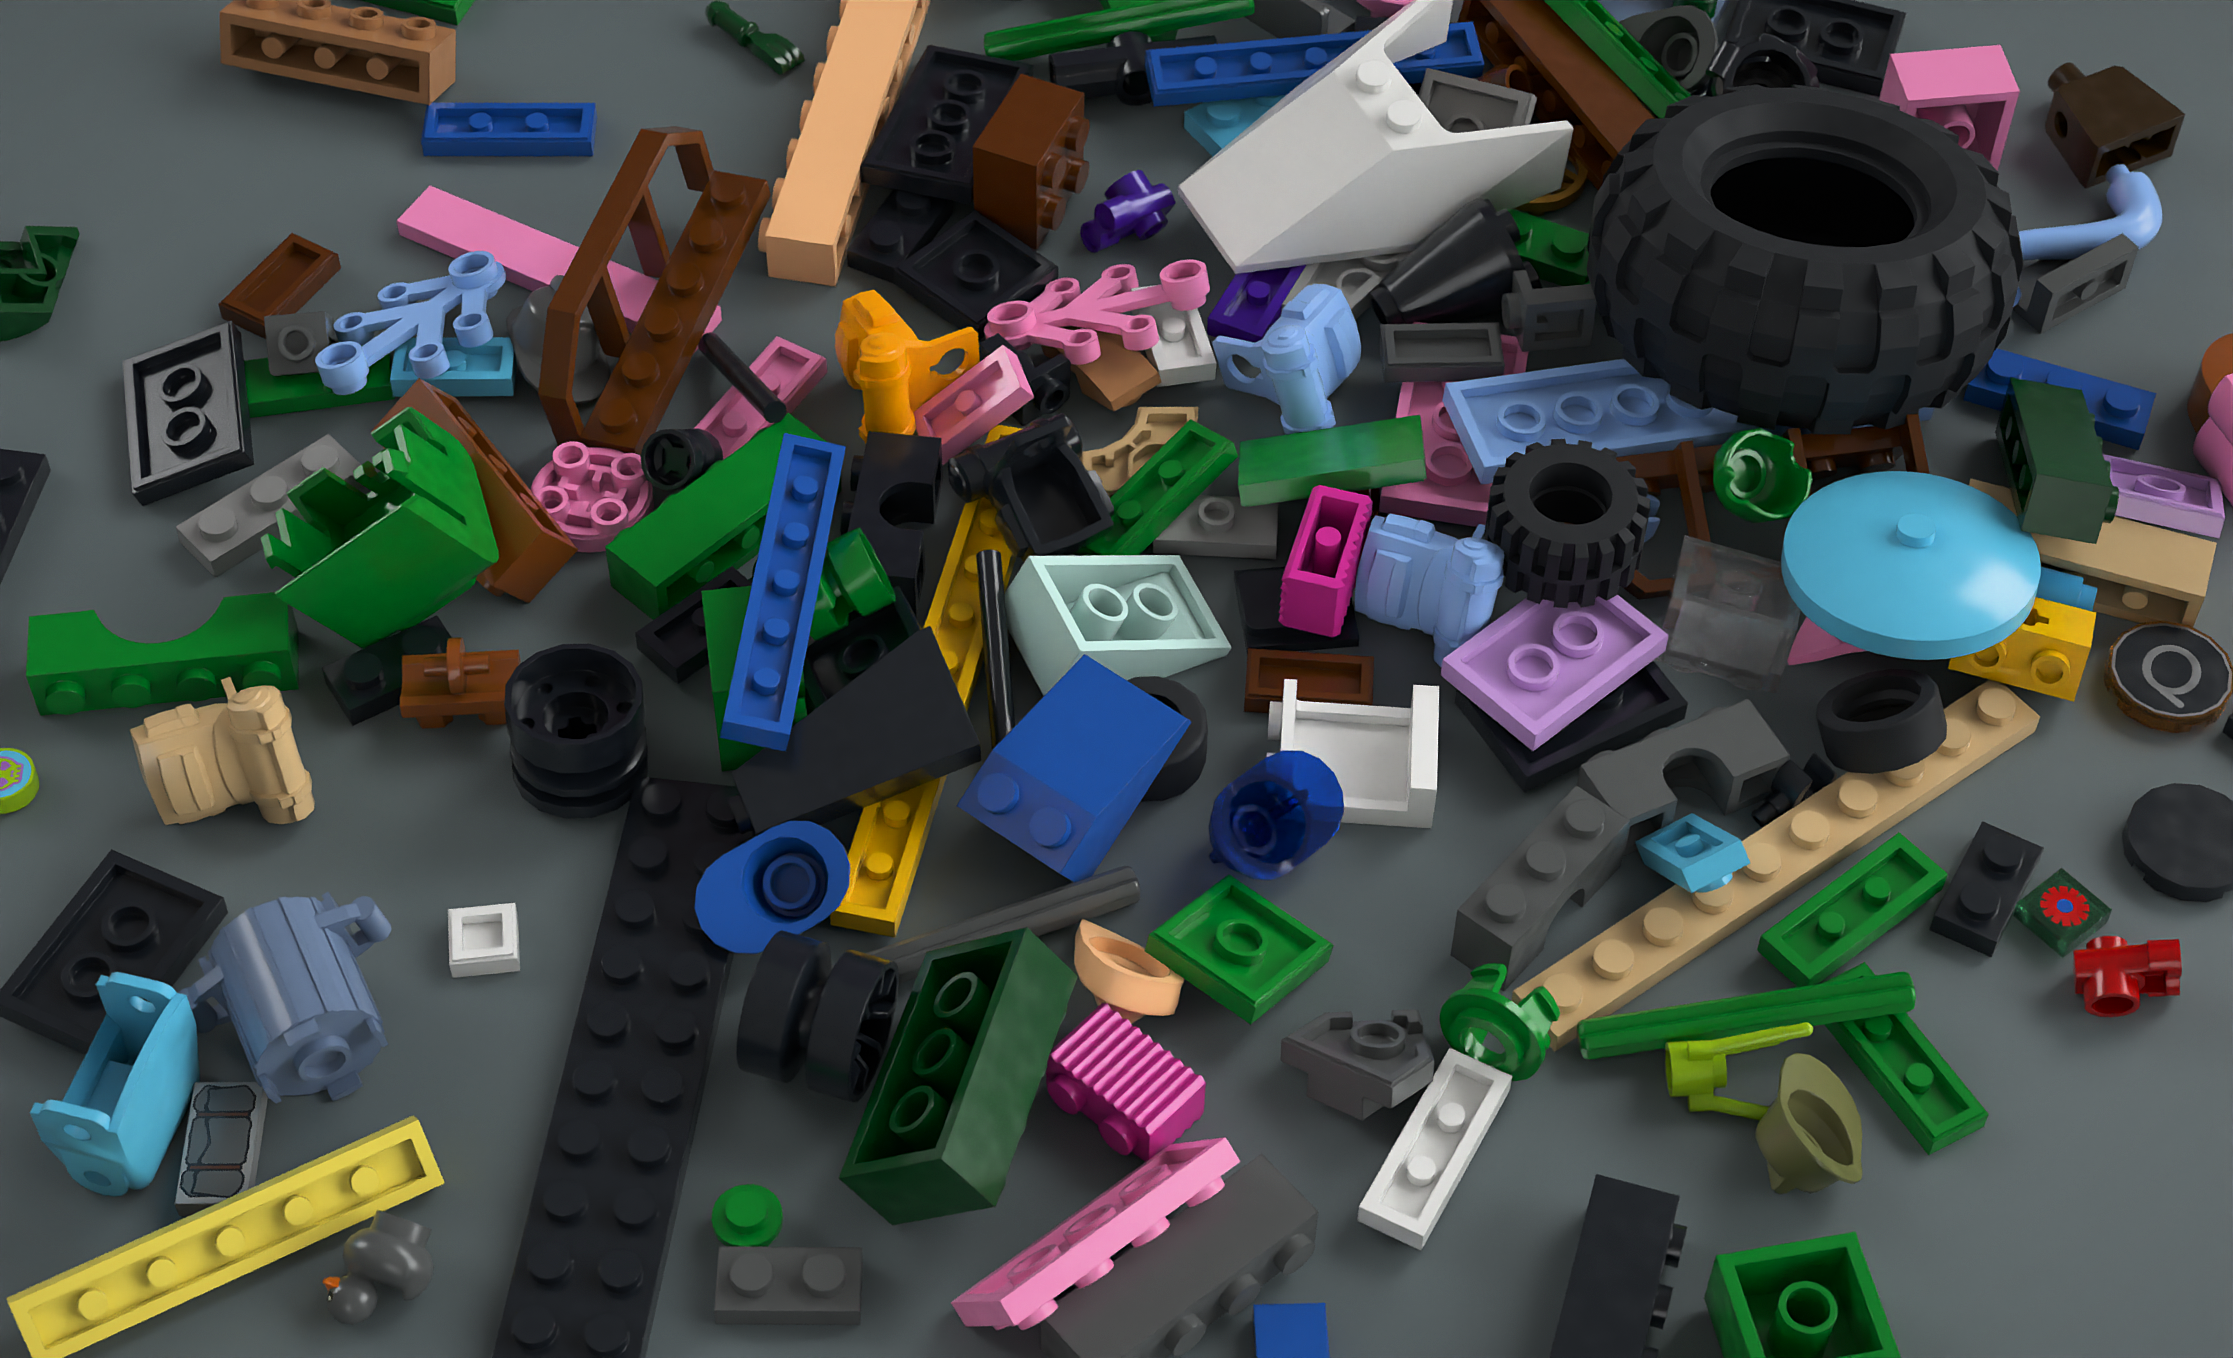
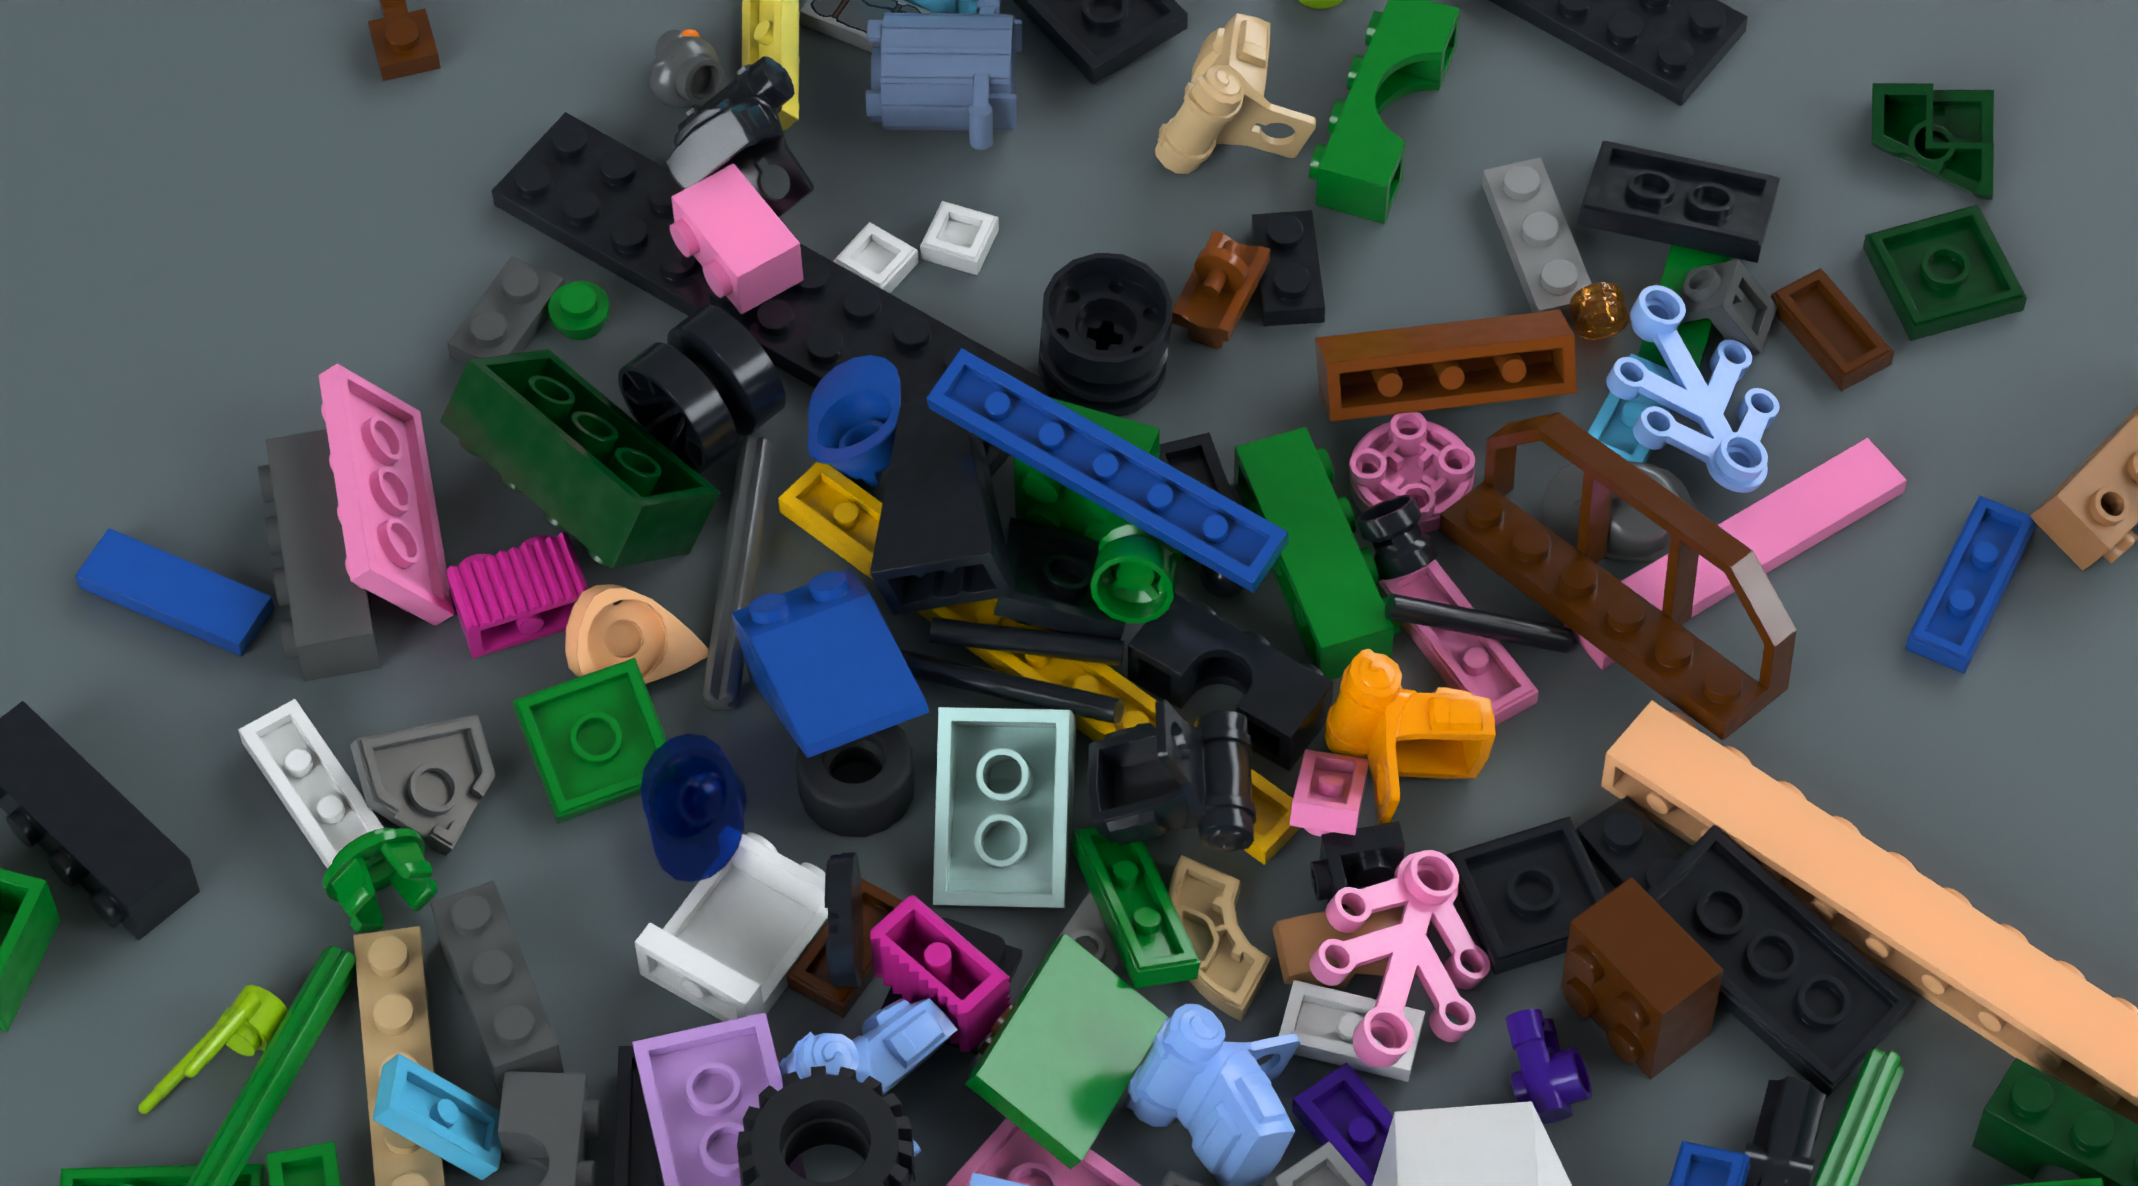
camera: 120 degrees right, 5 degrees up
(179, 236) = (1944, 272): none -> dark green tile
(345, 423) = (1599, 311): none -> clear orange bush
(391, 553) = (1385, 252): green piece -> none
(490, 1129) = (741, 129): none -> black piece
(547, 996) = (878, 257): none -> white tile
(616, 1071) = (736, 239): none -> bright pink brick
(769, 47) = (1991, 855): dark green piece -> none
(930, 614) = (1027, 641): none -> black bar
(1326, 631) = (845, 920): none -> black tile
(1810, 1129) = (124, 1066): olive piece -> none

